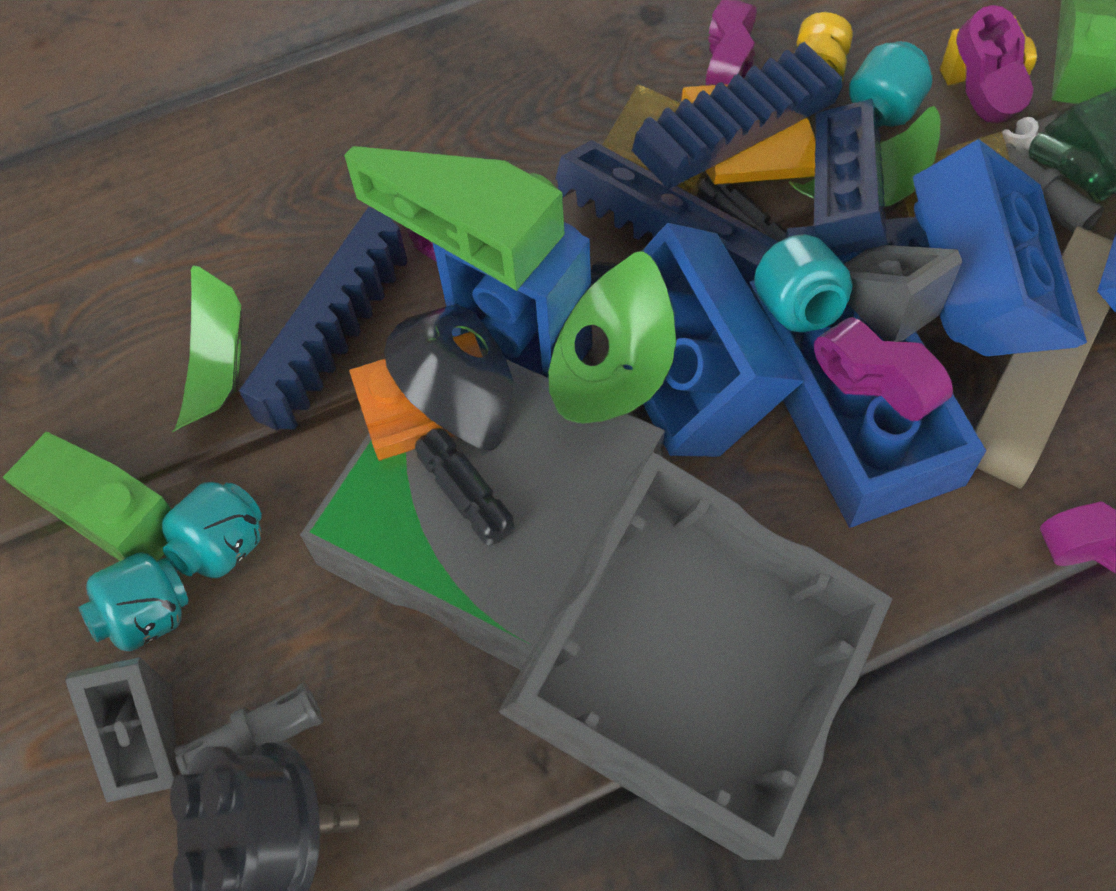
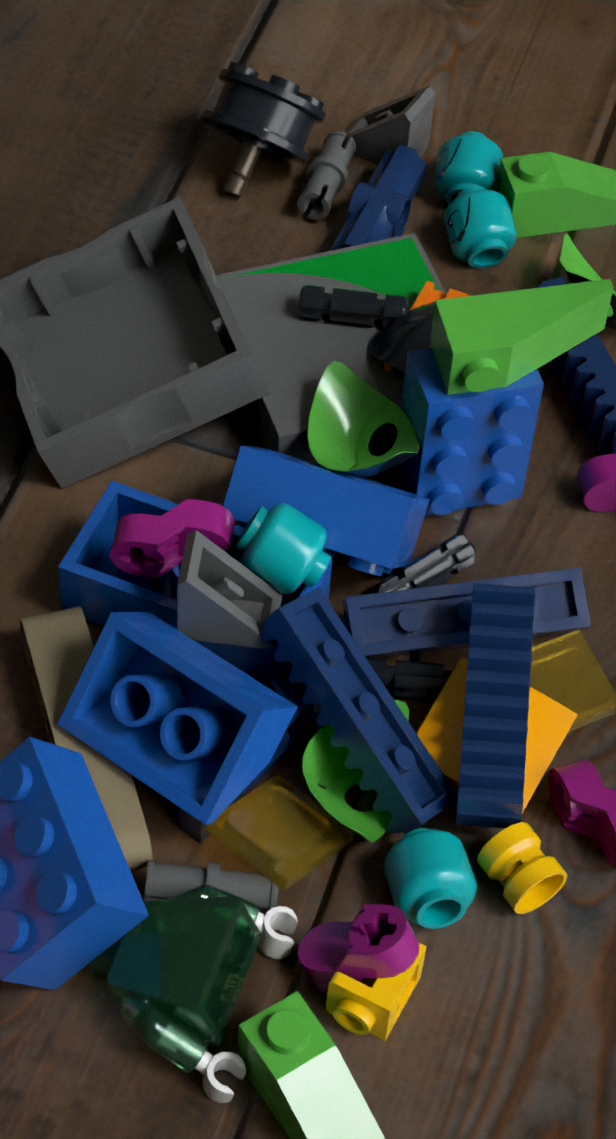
camera: 125 degrees right, 10 degrees down
(263, 638) = (384, 204): none -> dark blue piece

